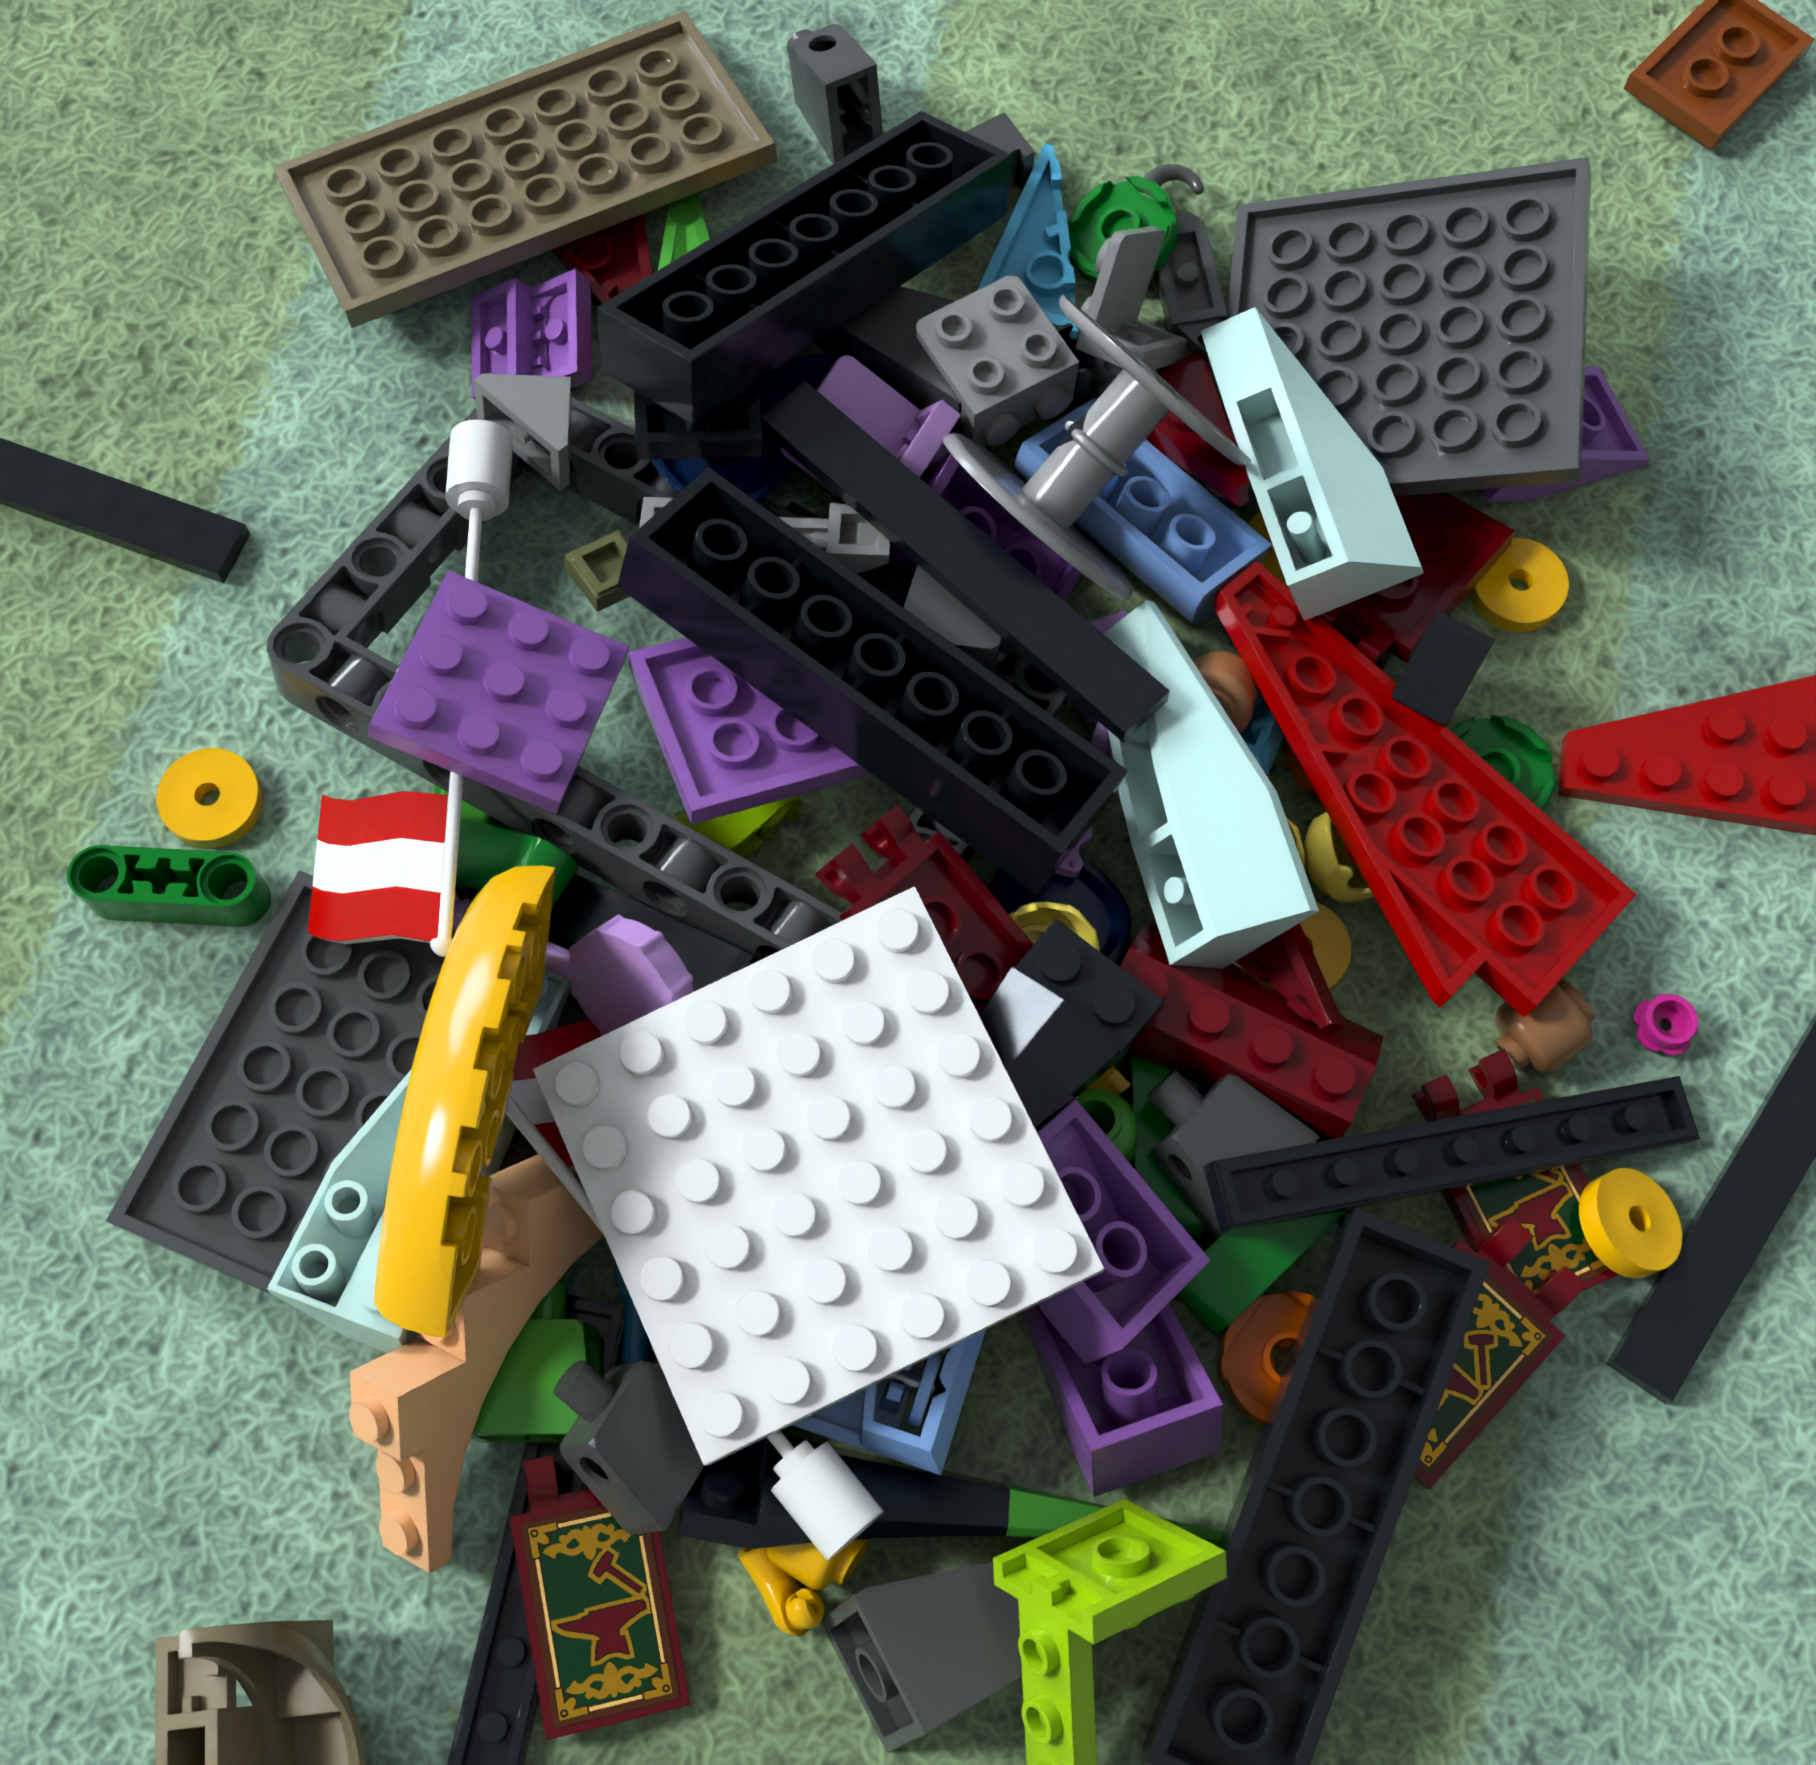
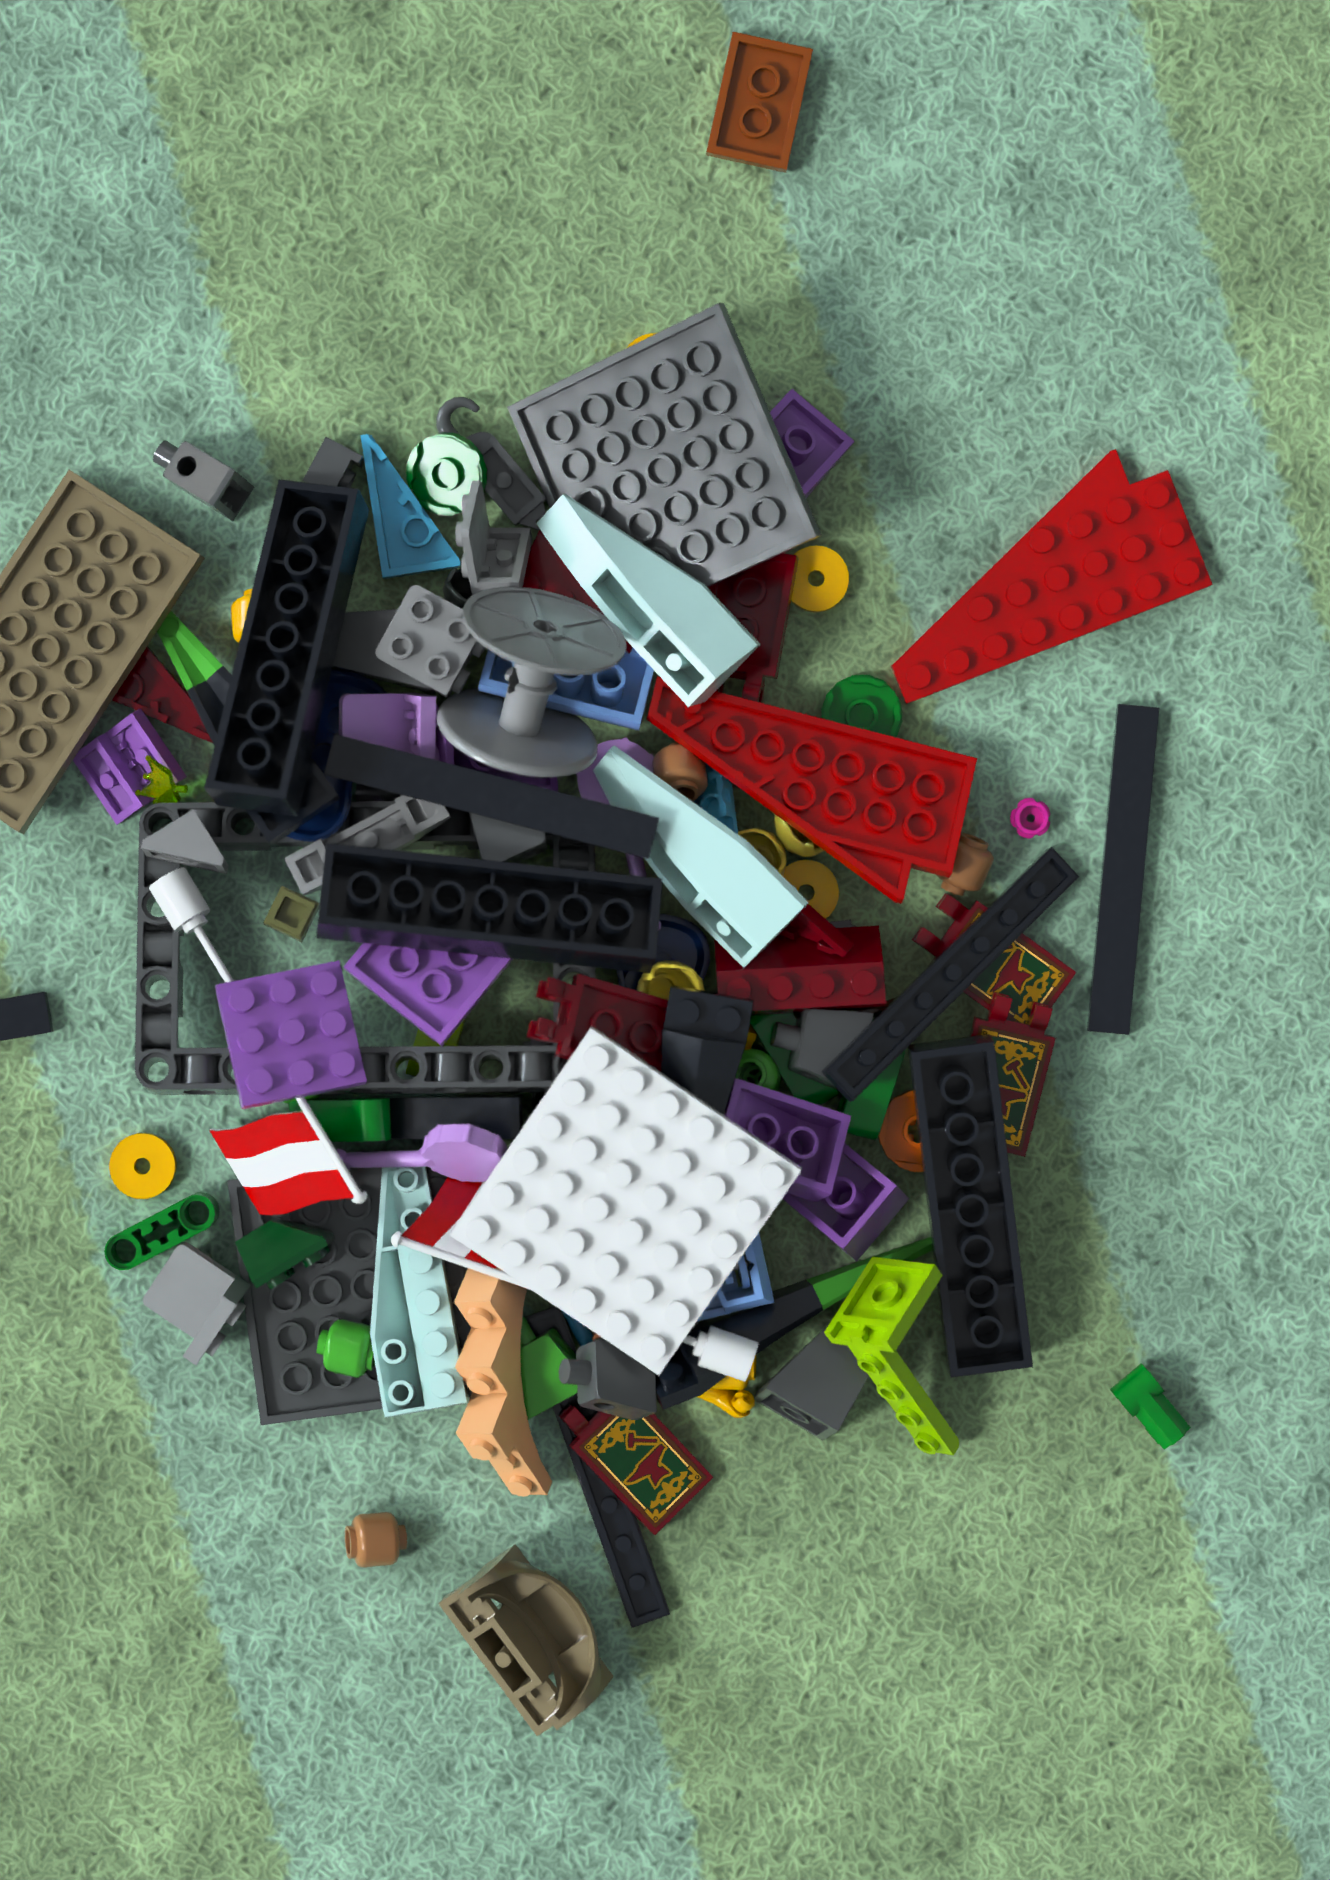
camera: 25 degrees left, 20 degrees up
(142, 1488) = (375, 1539): none -> medium nougat head
(147, 996) = (197, 1298): none -> light grey bracket
(286, 1171) = (347, 1348): none -> bright green head
(296, 982) = (278, 1246): none -> dark green slope
(460, 1101) = (424, 1269): yellow brick -> none
(558, 356) = (161, 785): none -> clear neon green piece
(1442, 668) = (800, 691): black slope -> none
(1630, 1223) = (1051, 962): yellow piece -> none

